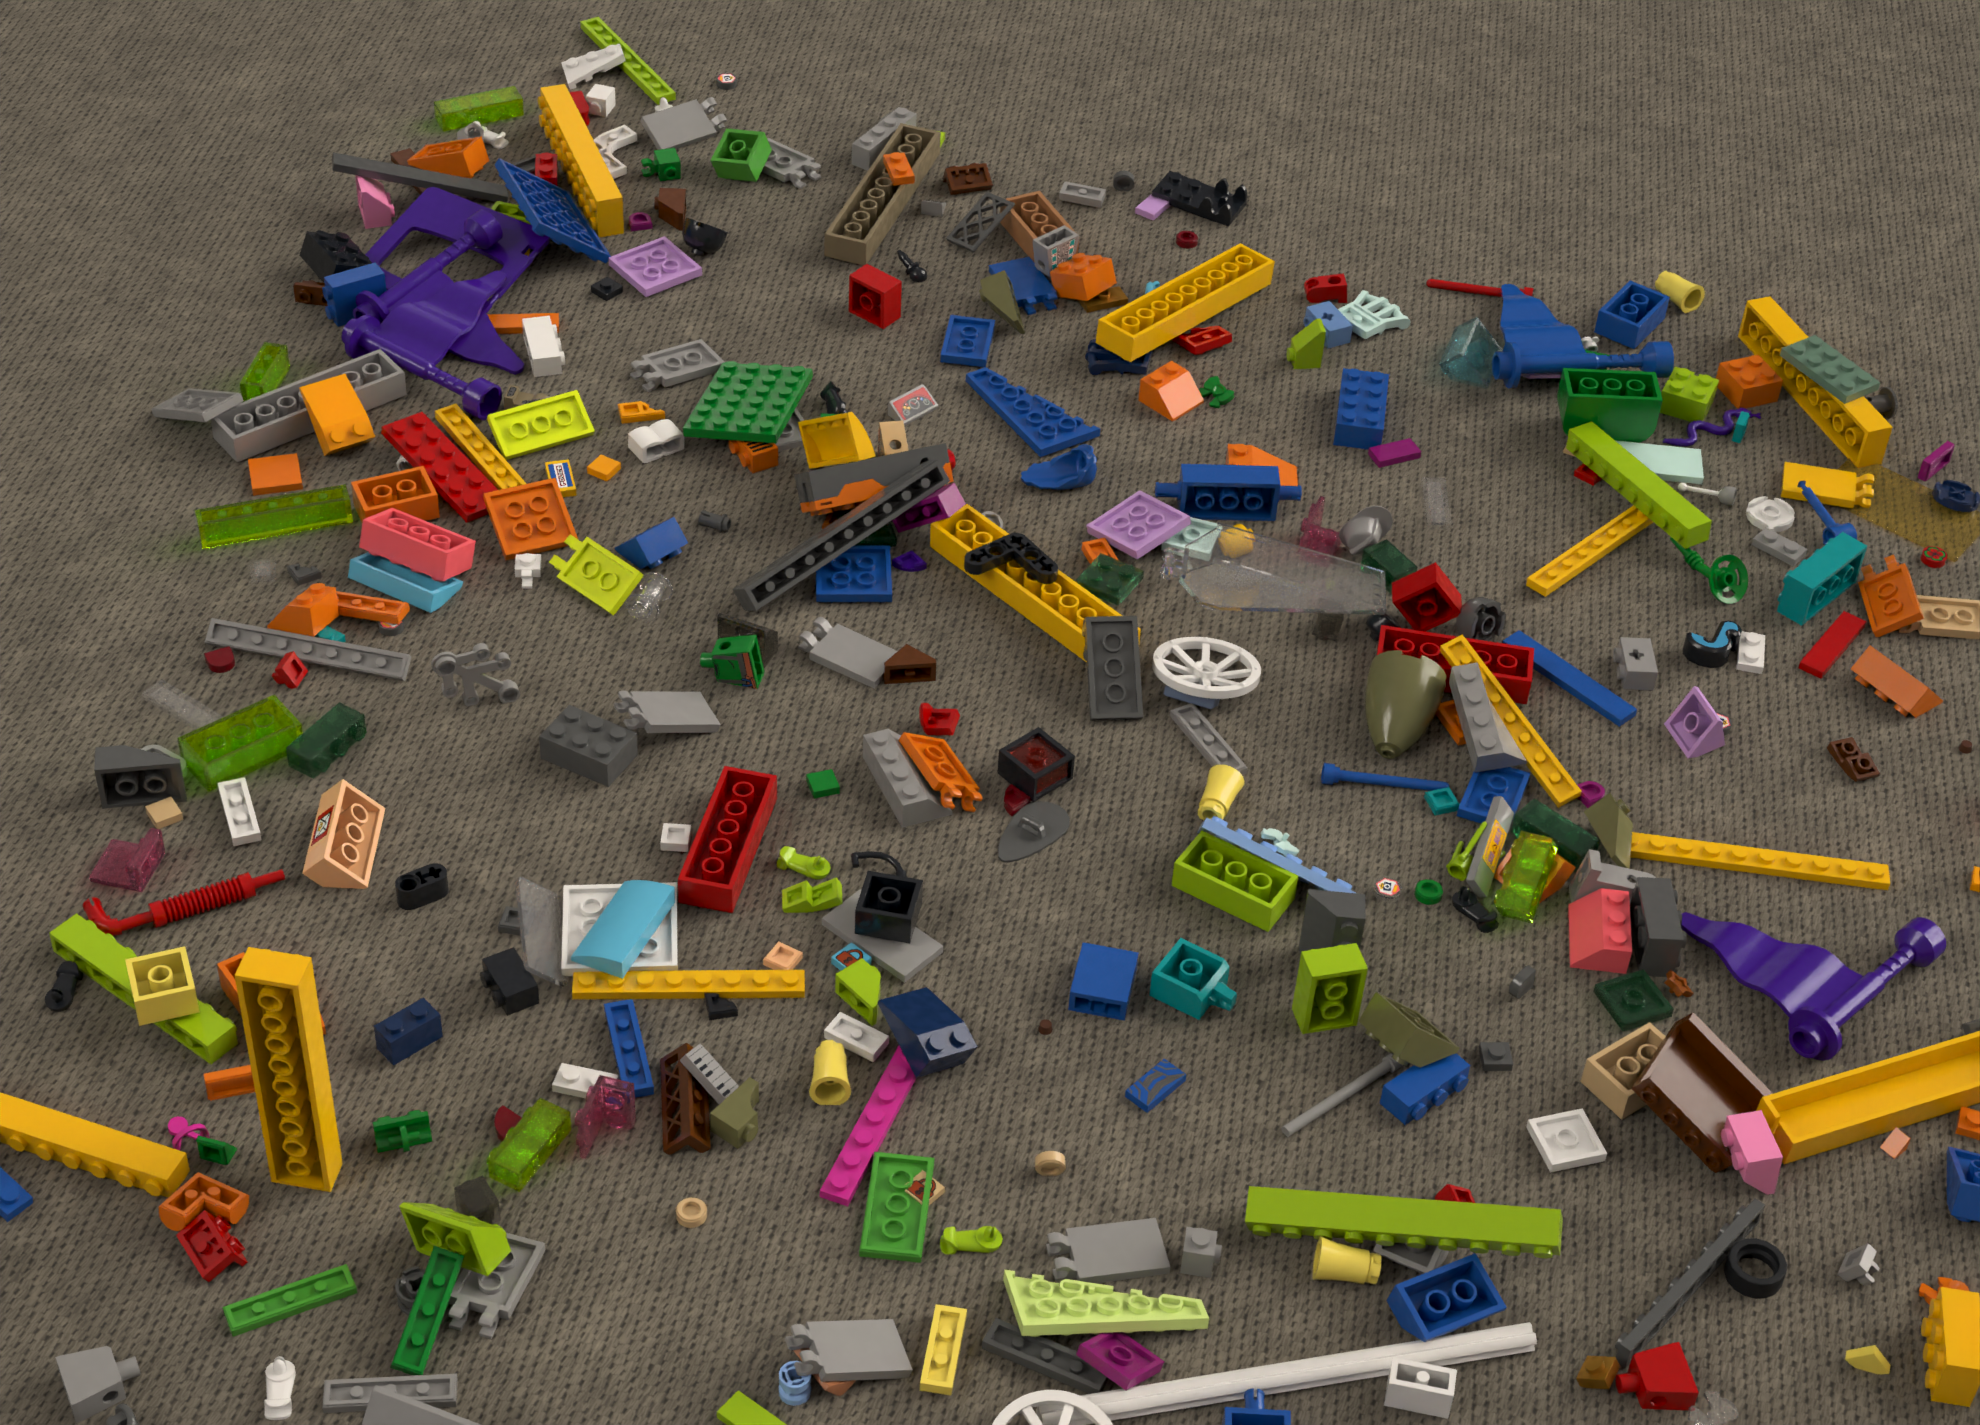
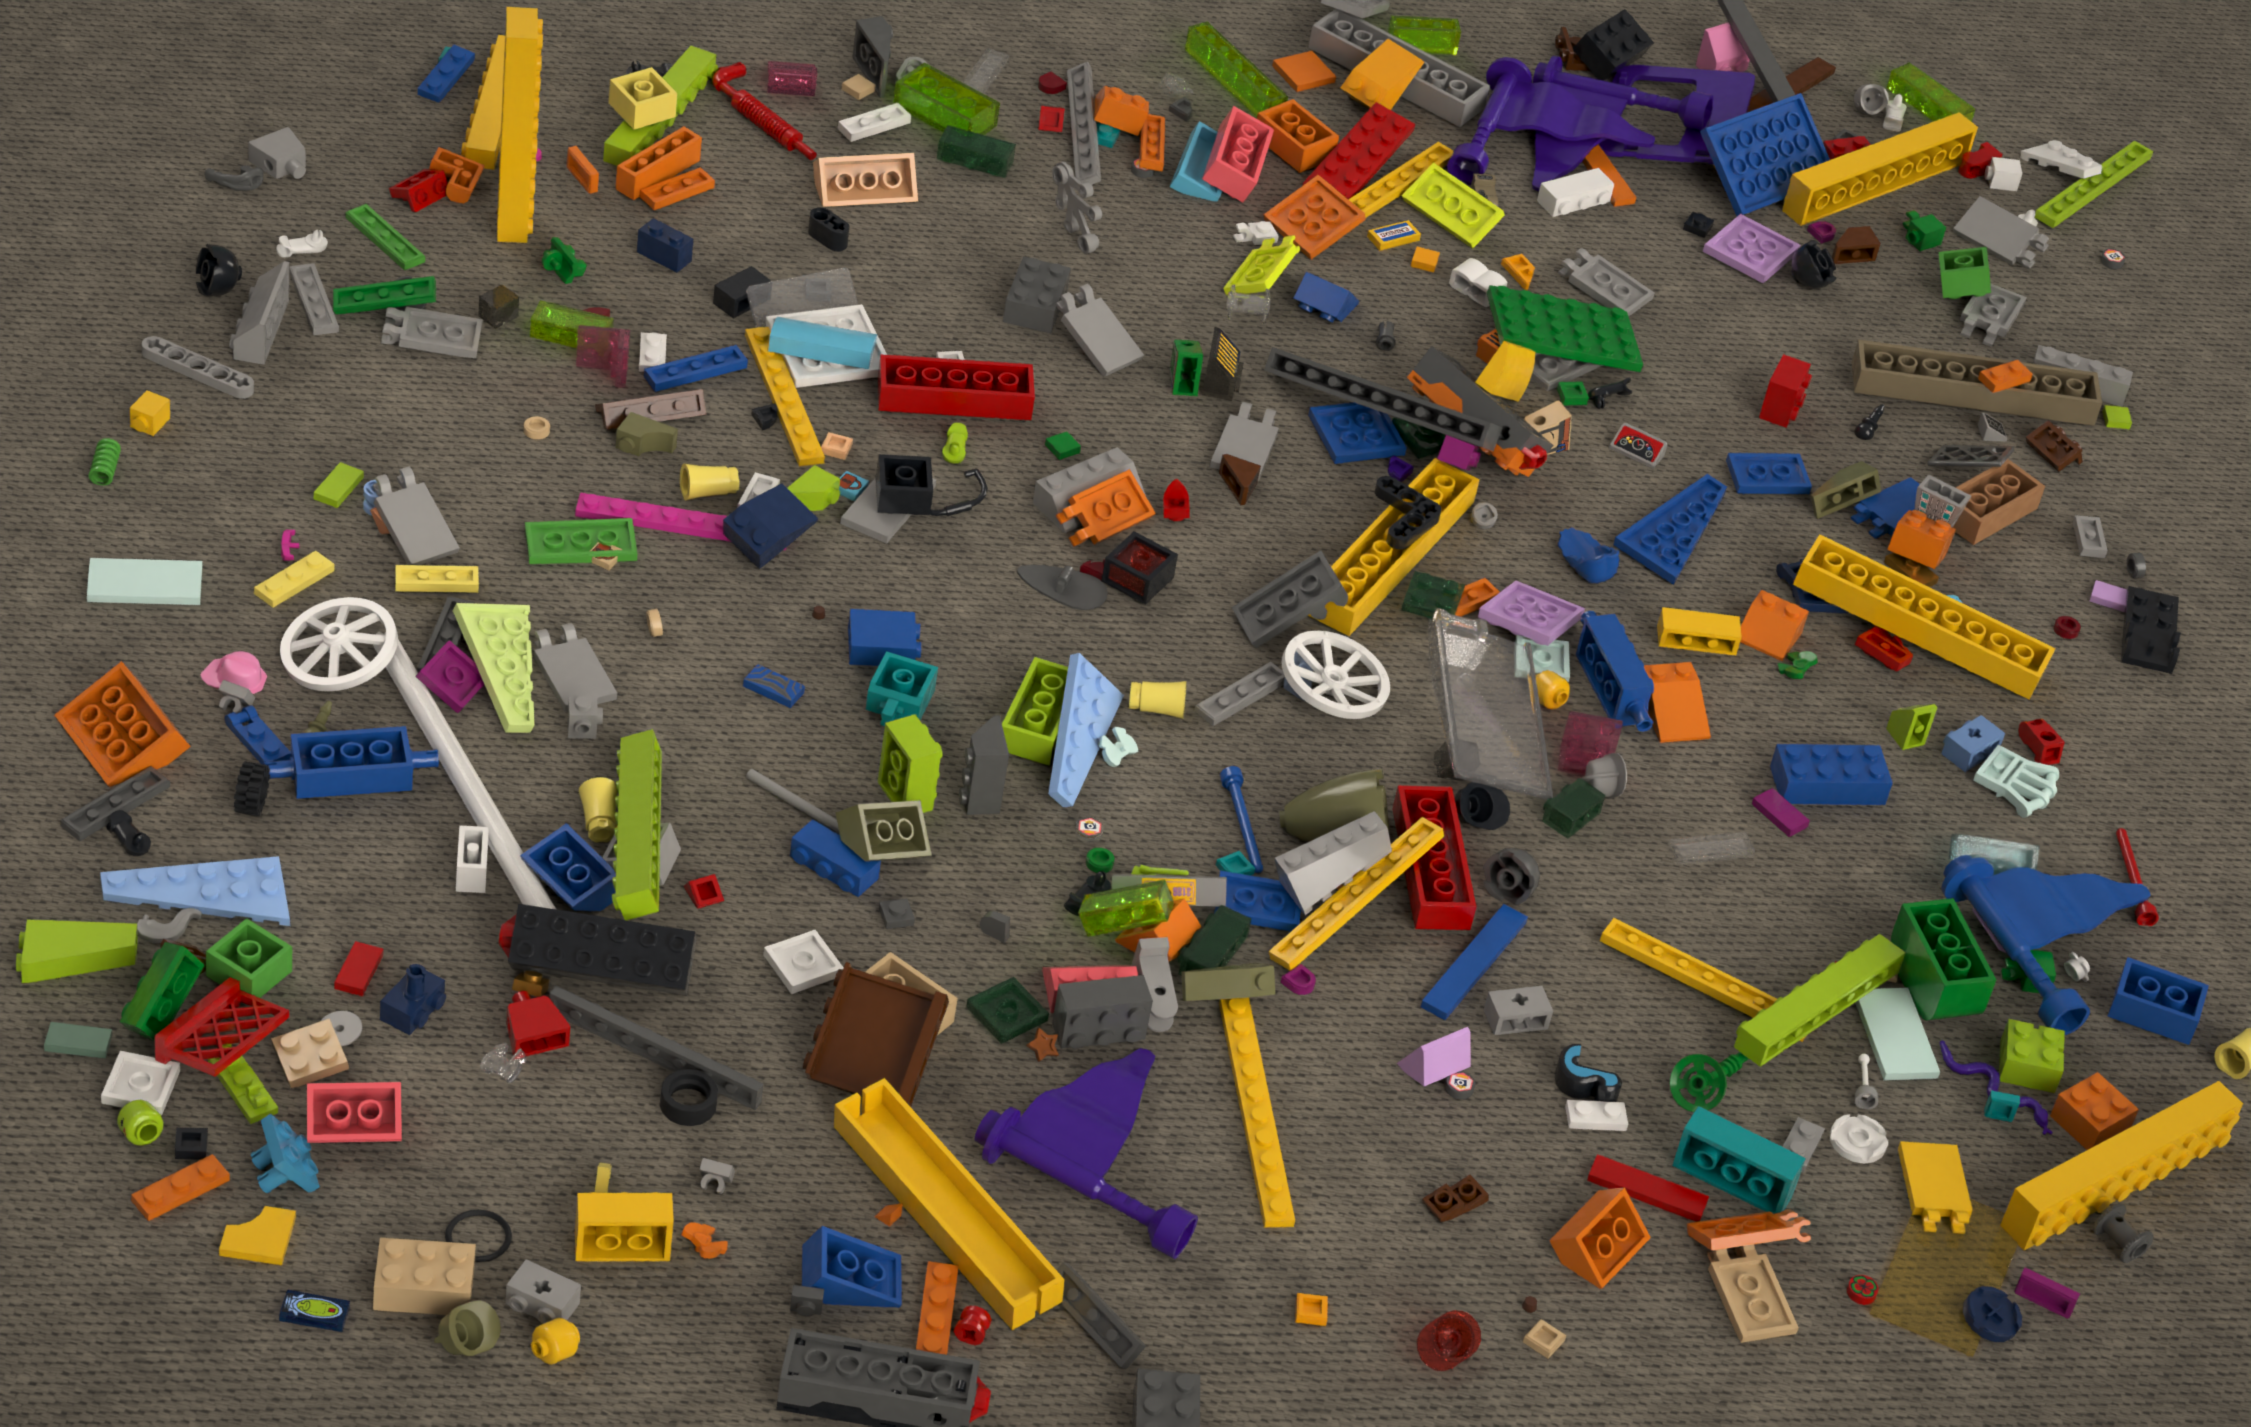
camera: 70 degrees right, 0 degrees up
(343, 287) = (1575, 55): blue brick -> none
(453, 157) = (1830, 93): orange slope -> none
(477, 1240) = (456, 290): lime slope -> none
(611, 141) = (1906, 190): white plate -> none
(709, 1073) = (679, 406): light grey tile -> none
(805, 898) = (914, 447): lime slope -> none
(982, 1240) = (559, 589): lime piece -> none
(1170, 434) = (1699, 631): none -> yellow brick
(1426, 598) = (1513, 819): red brick -> none
(1576, 1295) = (599, 949): none -> black piece
(1753, 1150) = (818, 1080): bright pink slope -> none
(1830, 369) = (2116, 1150): sand green plate -> none
(1832, 528) = (1847, 1194): blue piece -> none

